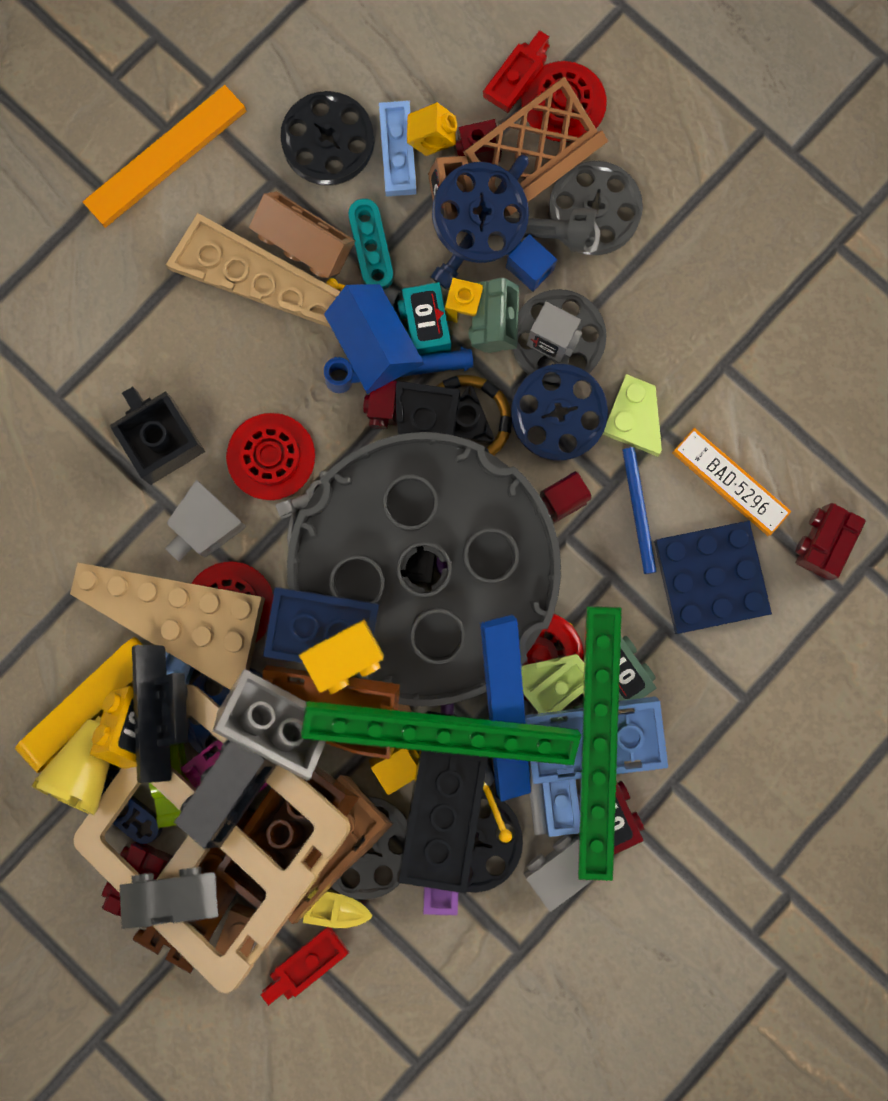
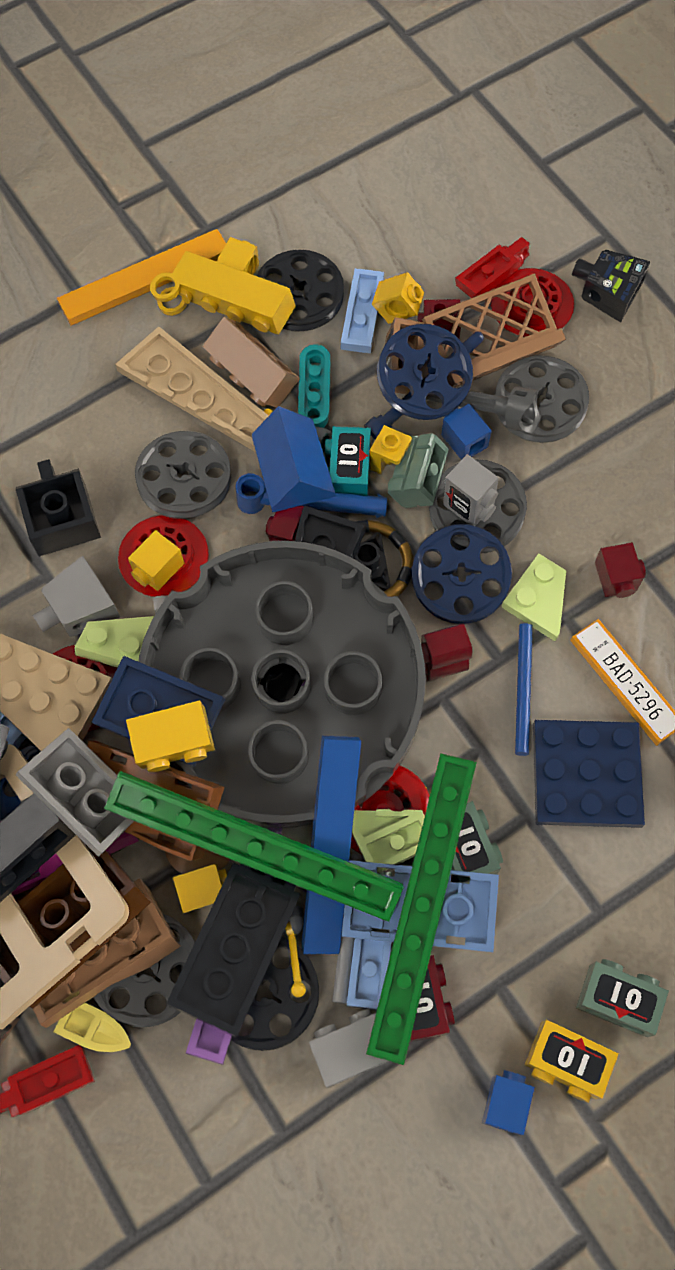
camera: 20 degrees right, 15 degrees down
(255, 159) = (226, 291): none -> yellow hinge
(255, 555) = (112, 639): none -> yellowish green wing
(257, 122) = (240, 255): none -> yellow brick
(259, 356) = (187, 485): none -> dark grey wedge
(268, 470) = (155, 561): none -> yellow brick
(639, 62) = (611, 281): none -> torso
(703, 884) = (508, 1103): none -> blue brick
(705, 375) = (620, 570): none -> dark red brick
(748, 835) = (571, 1061): none -> brick
(781, 773) = (623, 998): none -> brick

